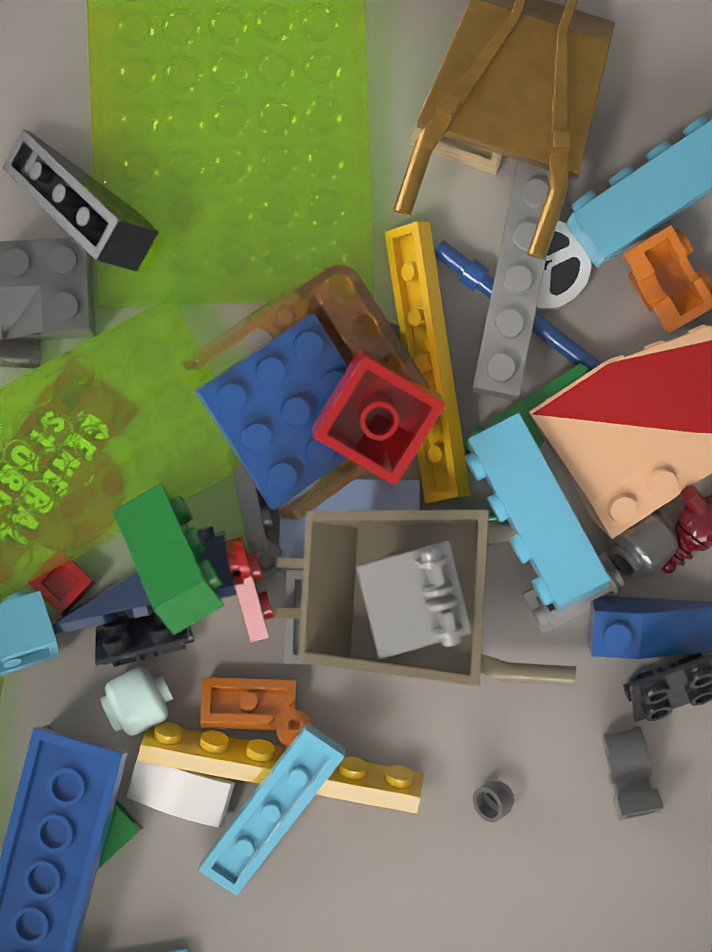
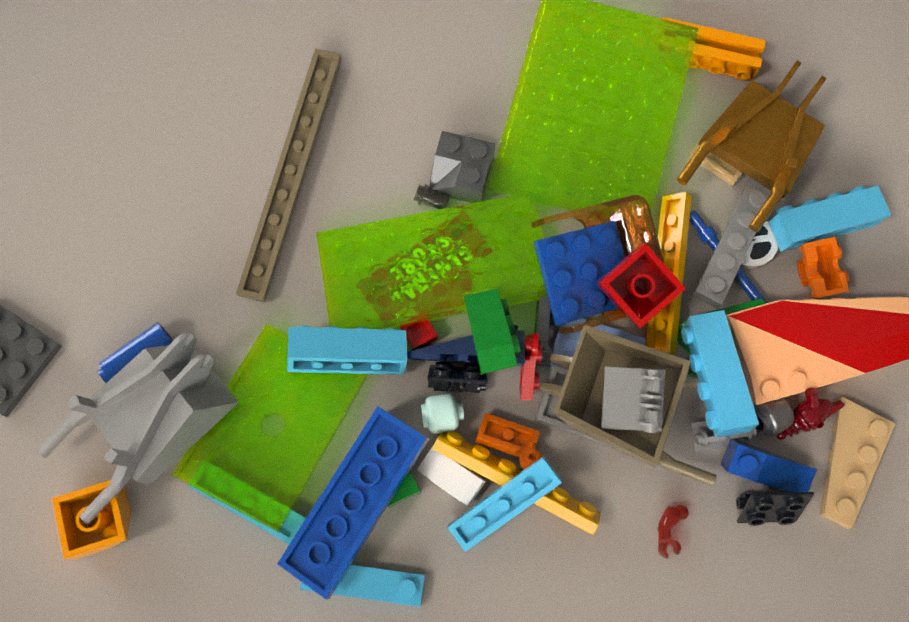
camera: 10 degrees right, 10 degrees down
(80, 204) = (498, 126): slope -> none
(493, 800) = (640, 543): dark grey hinge -> none
(527, 752) = (670, 518): none -> clear red piece
(630, 774) = (730, 549): dark grey leg -> none

